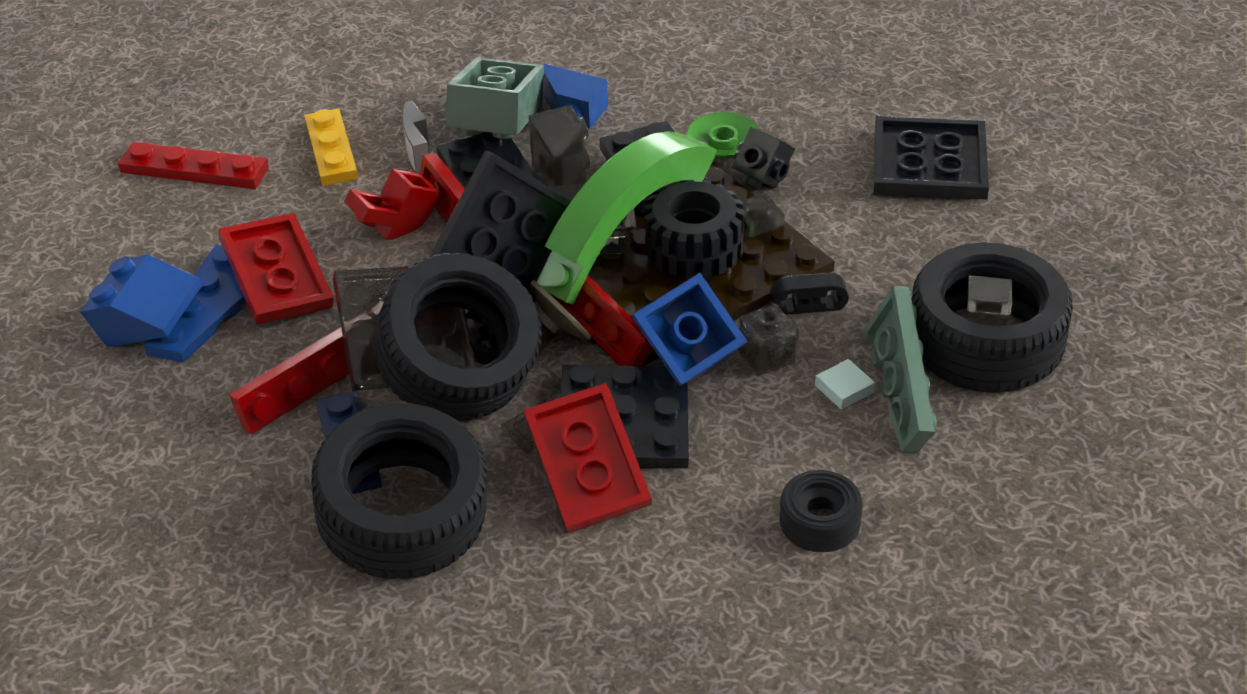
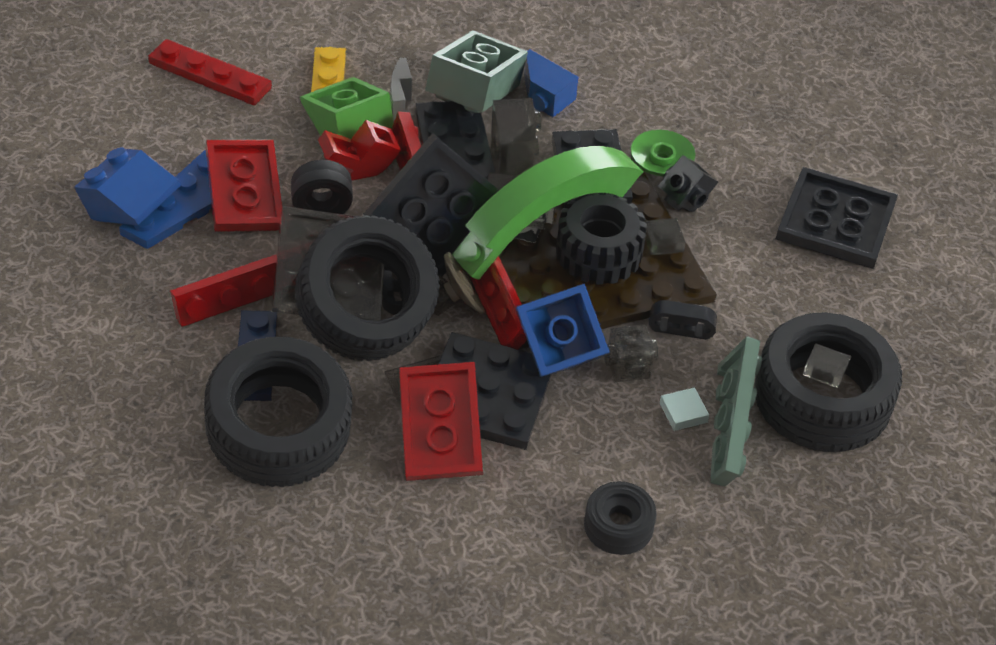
camera: 10 degrees right, 5 degrees up
(363, 234) = (319, 175): none -> black tyre
(364, 163) = (347, 105): none -> bright green slope

